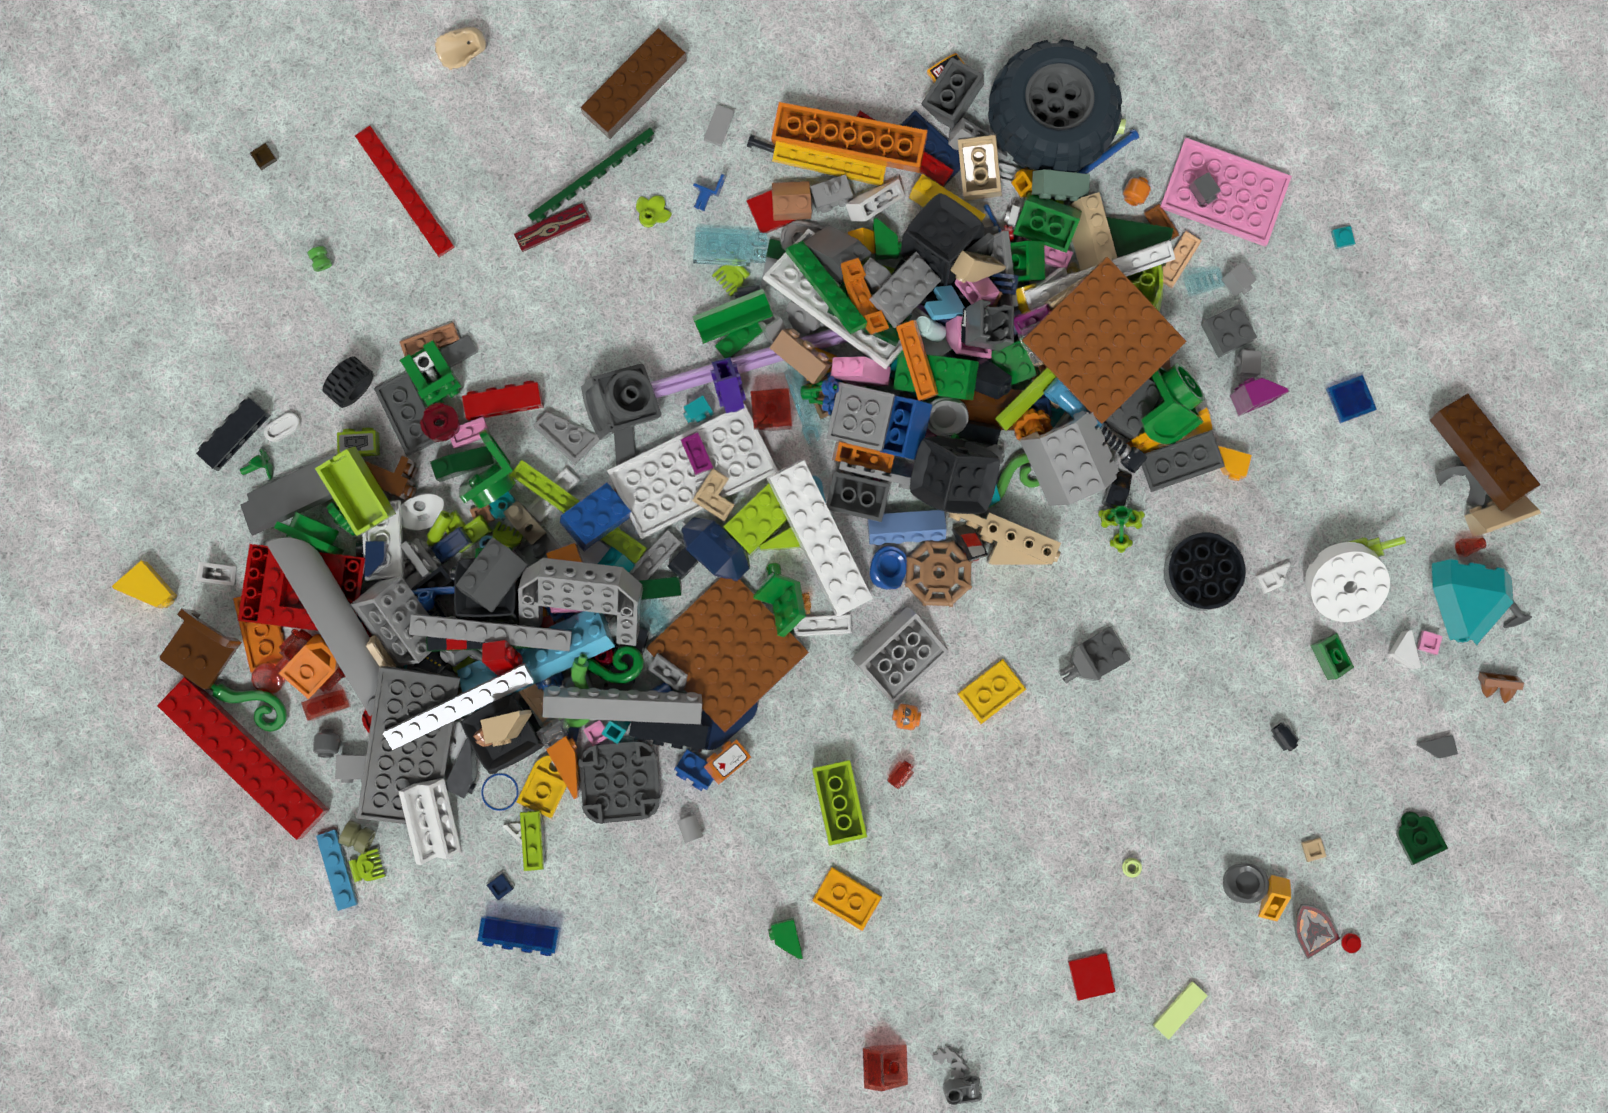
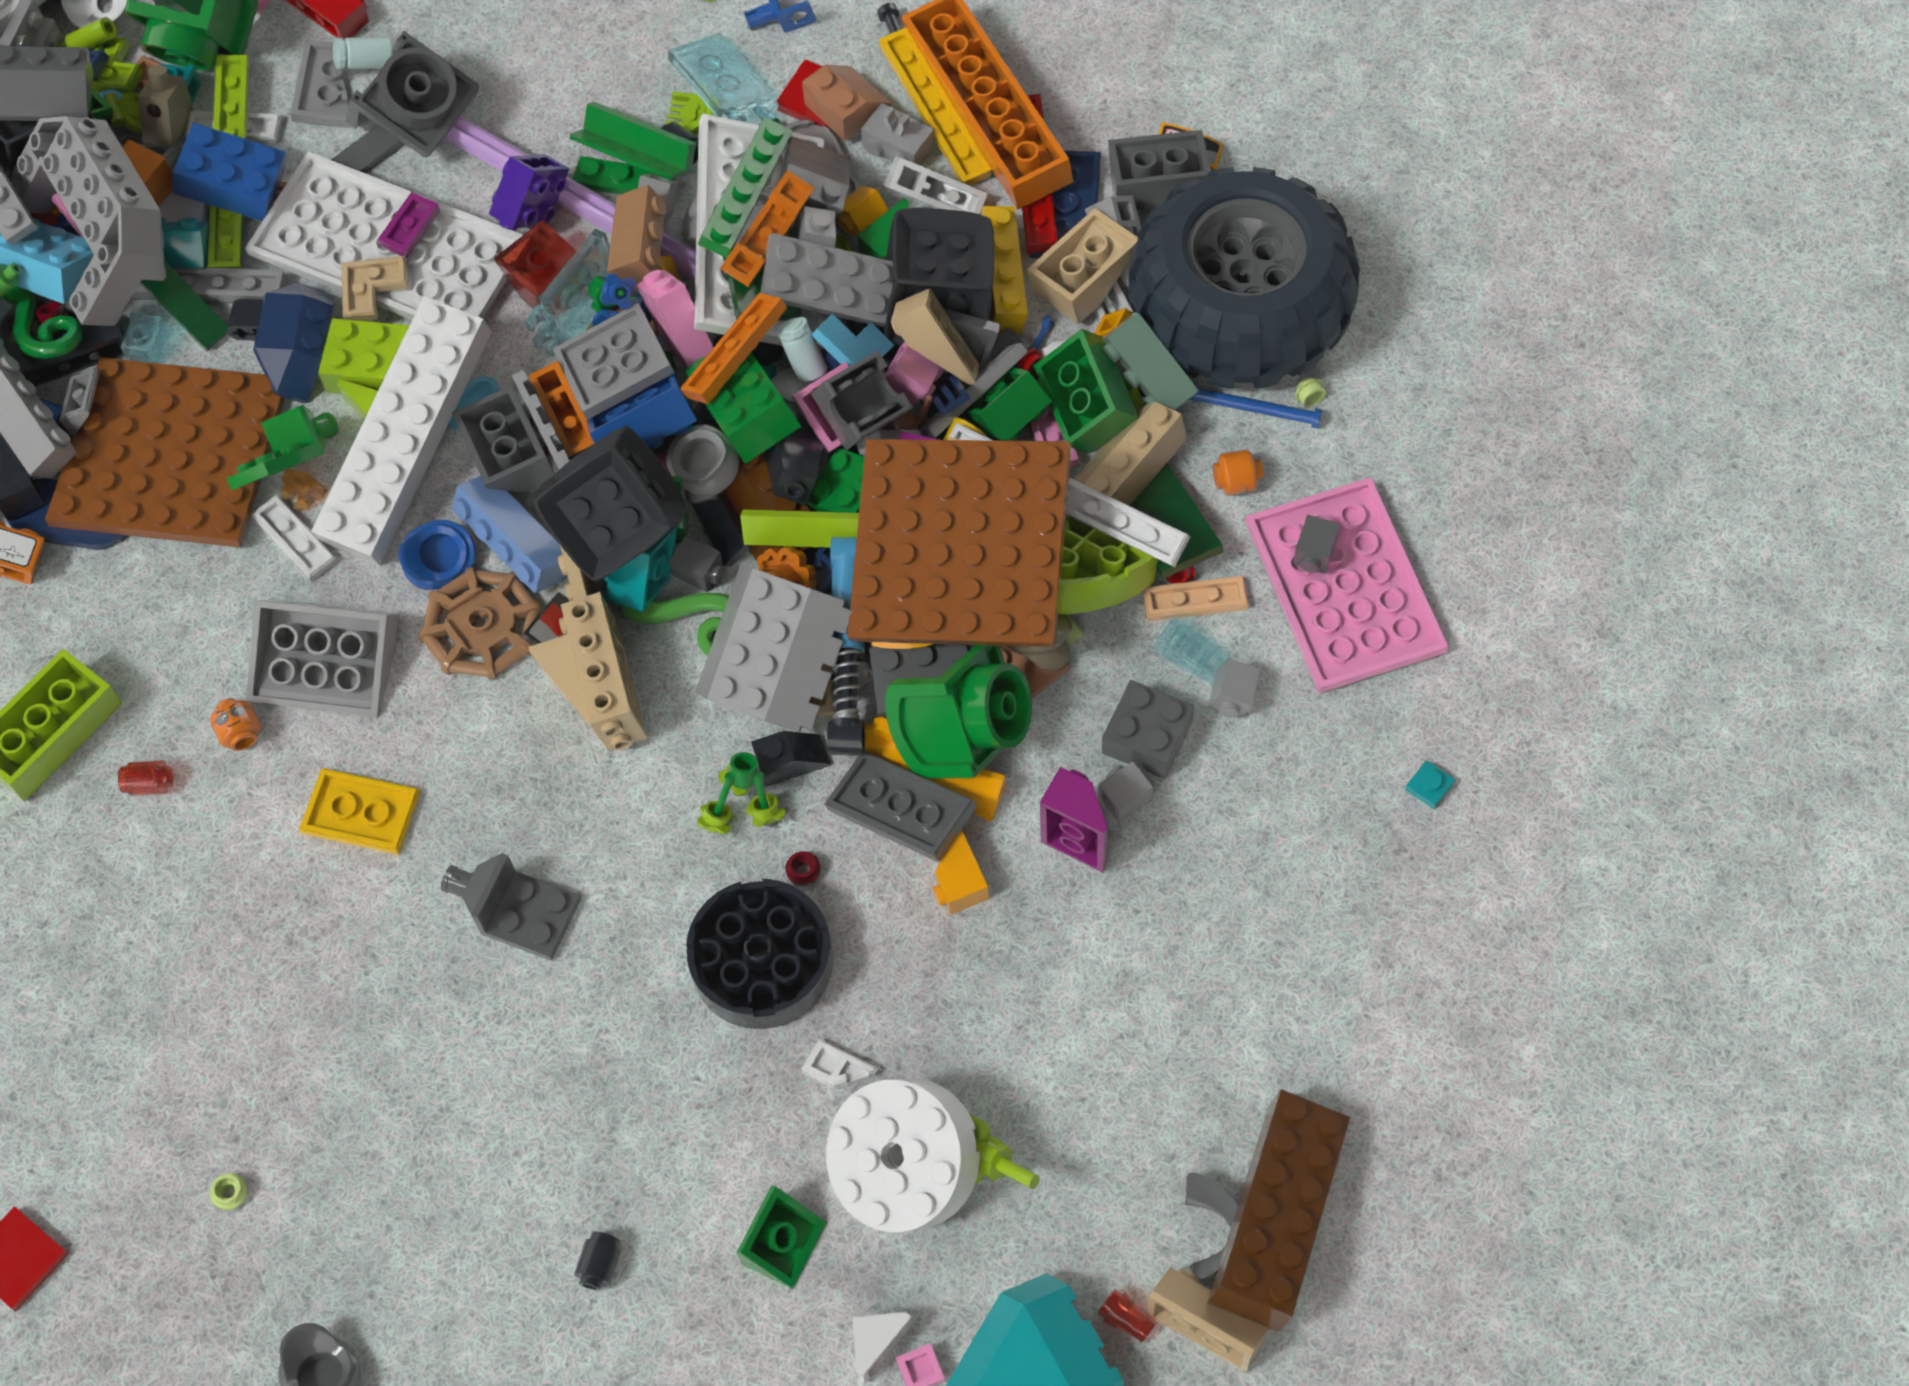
camera: 60 degrees right, 20 degrees down
(566, 403) = (361, 53): none -> light aqua piece
(697, 410) = (473, 193): teal brick -> none
(1158, 217) = (1230, 529): dark orange tile -> none
(1179, 523) = (802, 858): none -> dark red plate
(1351, 399) = (1201, 974): clear blue plate -> none

